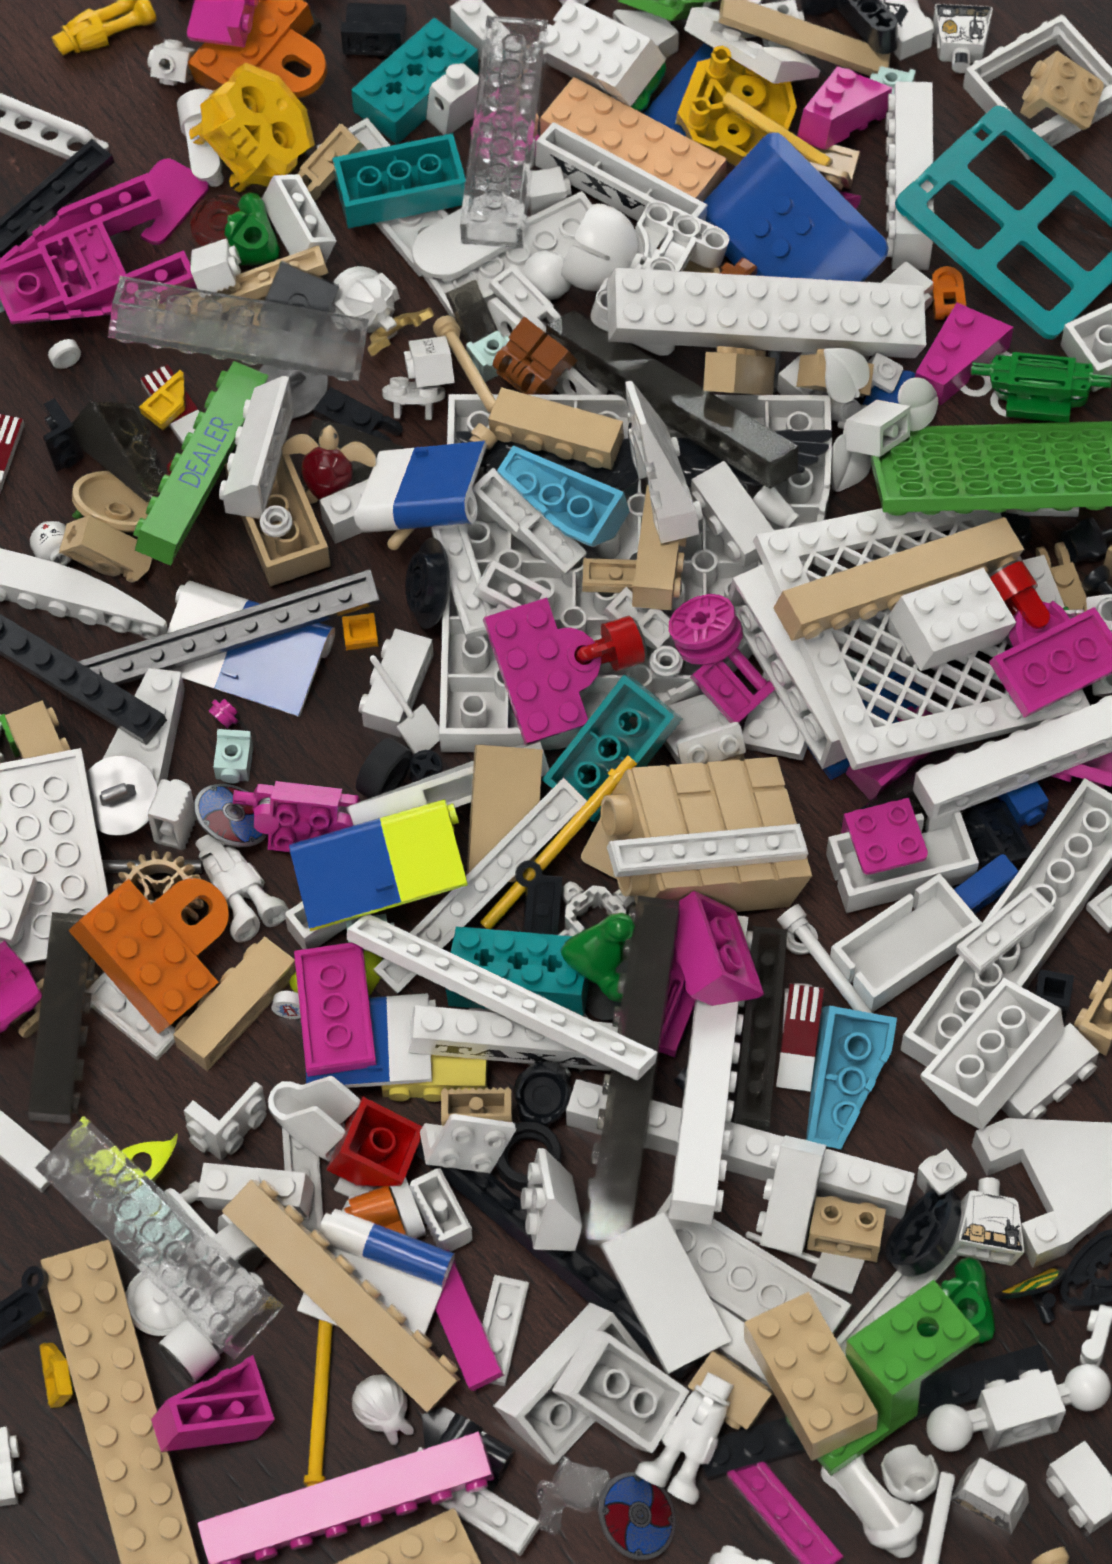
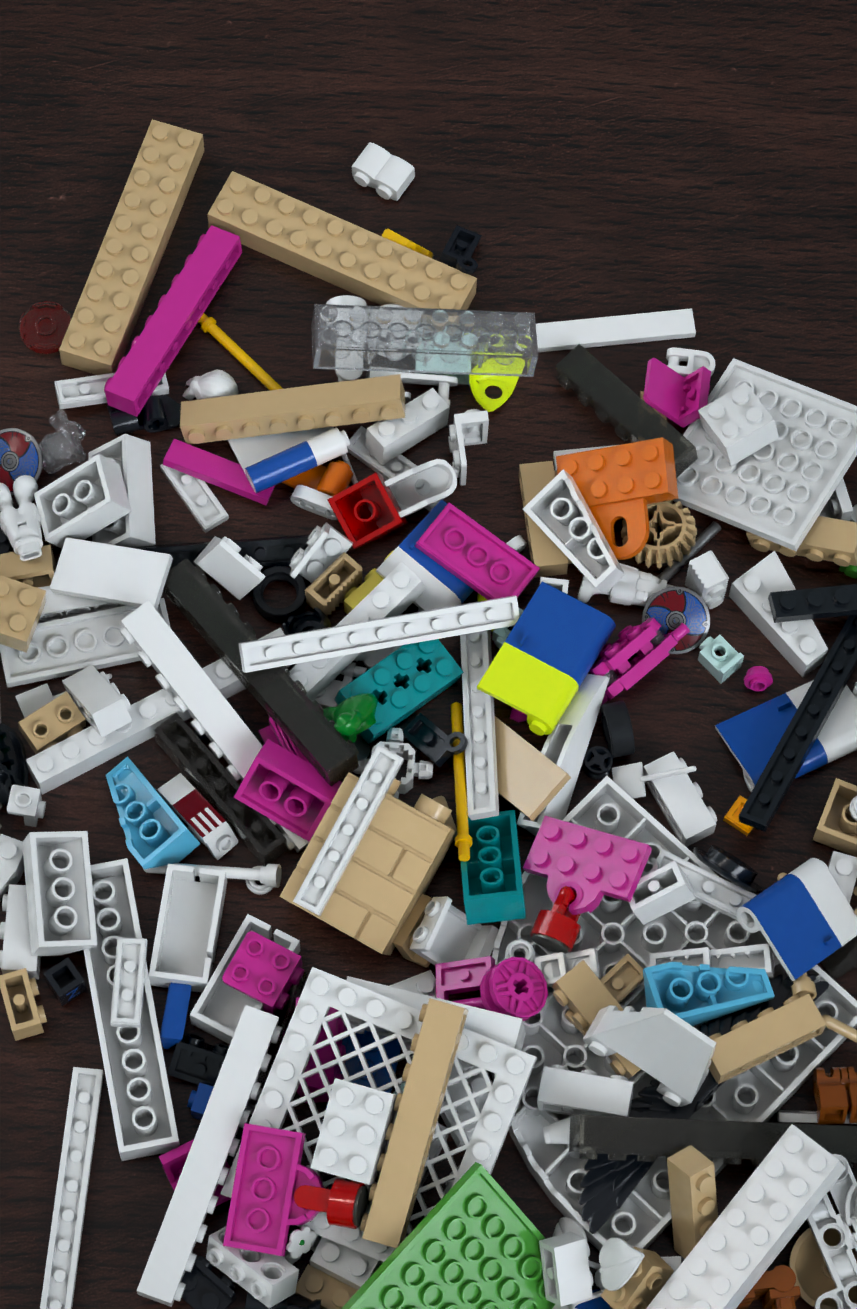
camera: 130 degrees right, 5 degrees up
(120, 794) = (748, 556): shield -> none
(215, 1411) = (293, 292): dark pink wedge -> none
(236, 940) = (571, 525): none -> white wedge
(441, 1210) = (291, 511): white brick -> none

